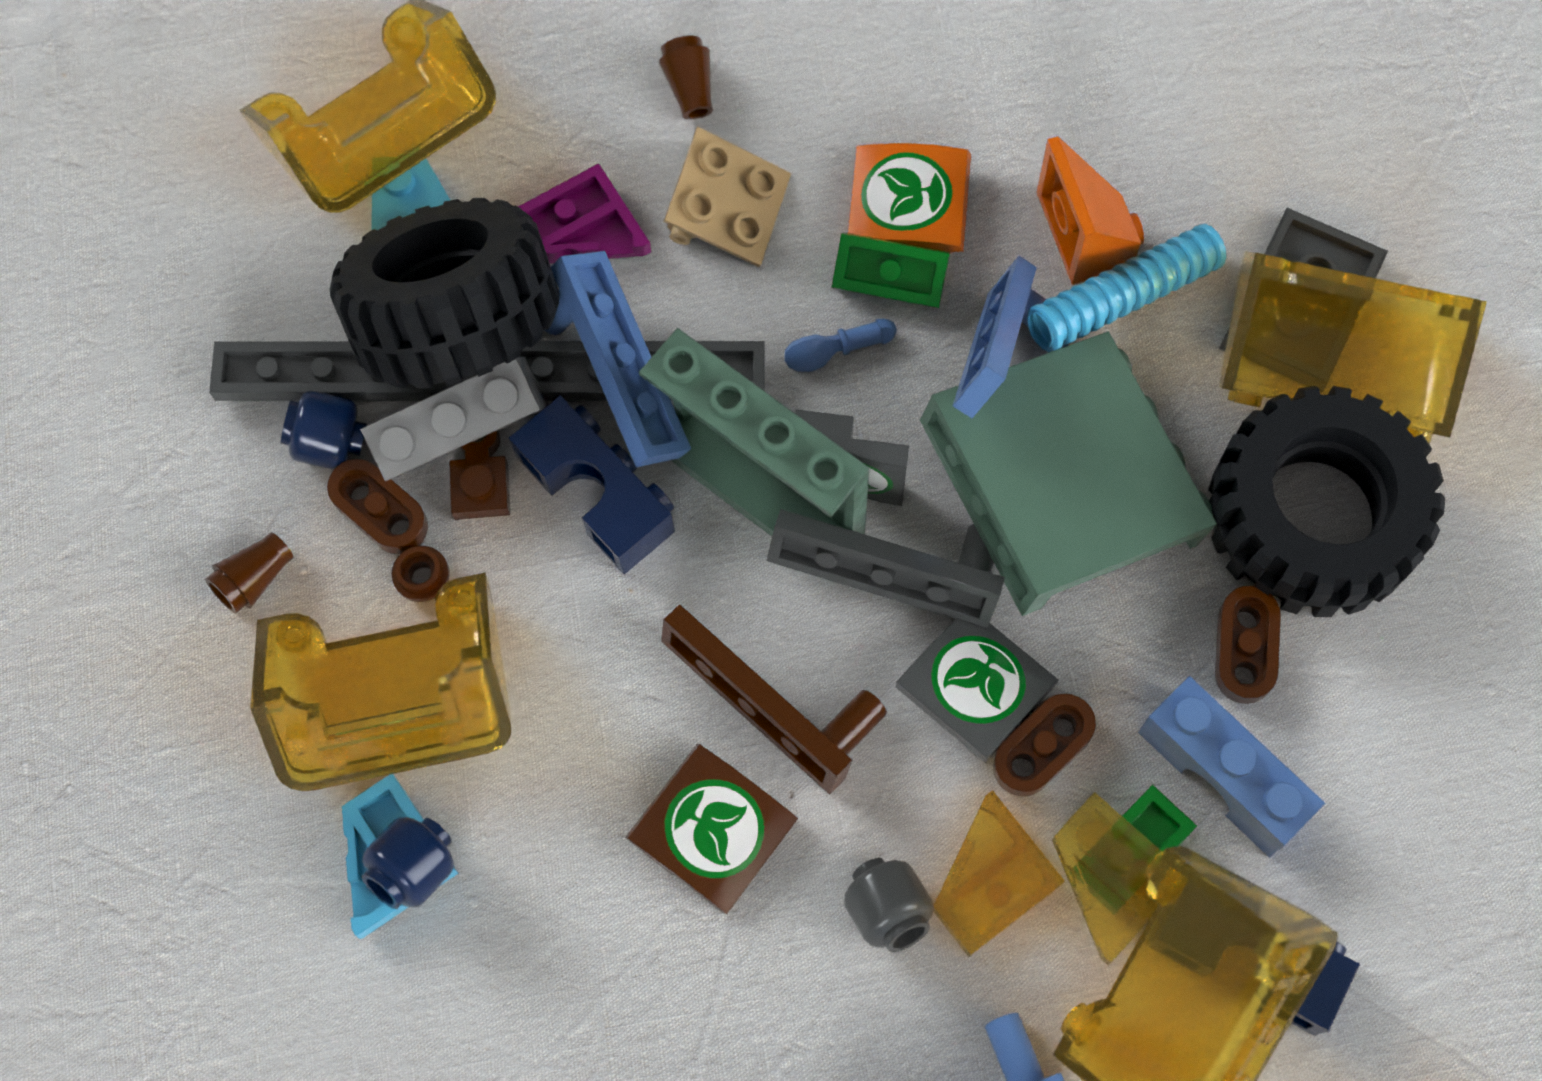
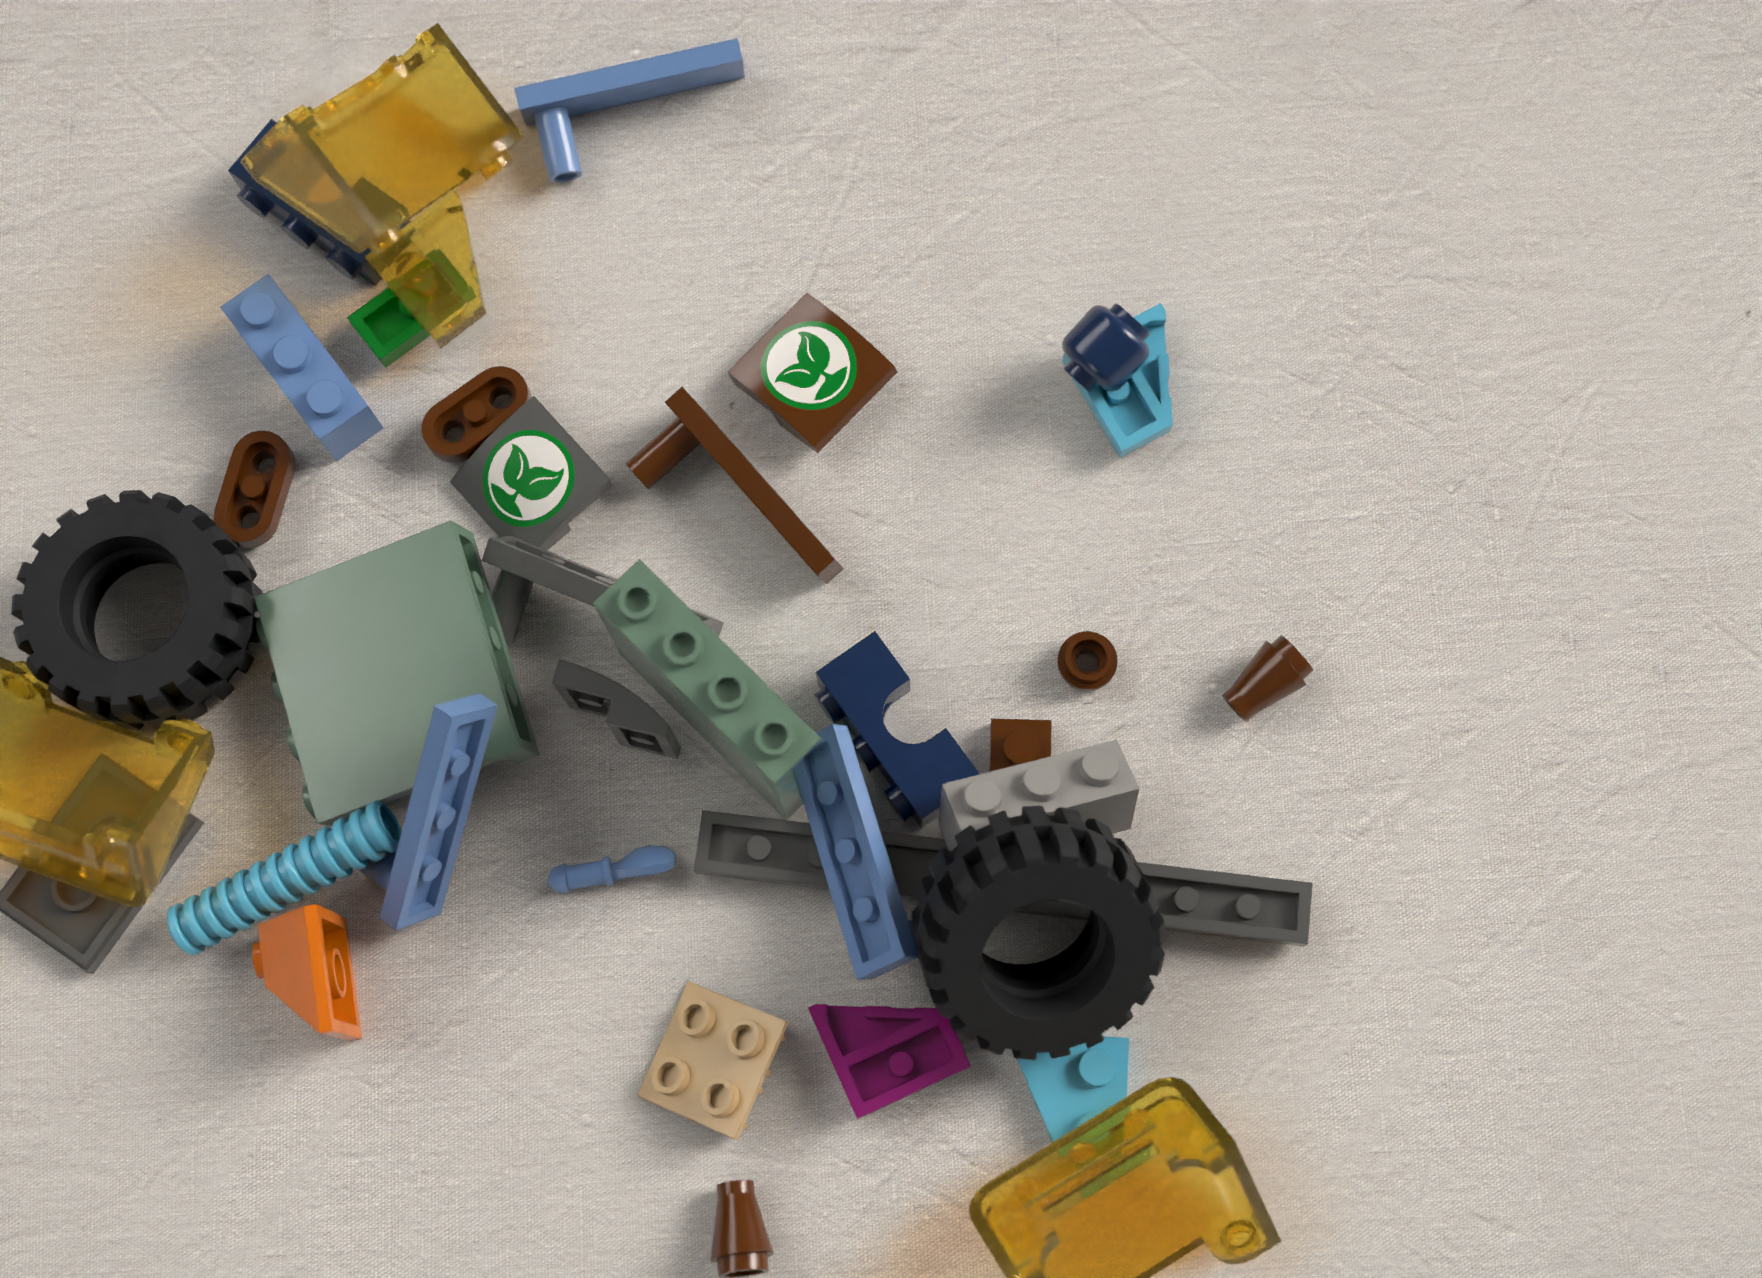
camera: 175 degrees left, 5 degrees up
(322, 430) = (1186, 825): dark blue head -> none
(380, 508) = (1135, 732): reddish brown plate -> none
(381, 697) = (1128, 534): clear yellow windscreen -> none
(889, 904) = (651, 280): dark grey head -> none
(890, 269) = (541, 943): green plate -> none
(911, 194) = (506, 1036): slope -> none
(993, 878) = (549, 301): clear yellow wing -> none

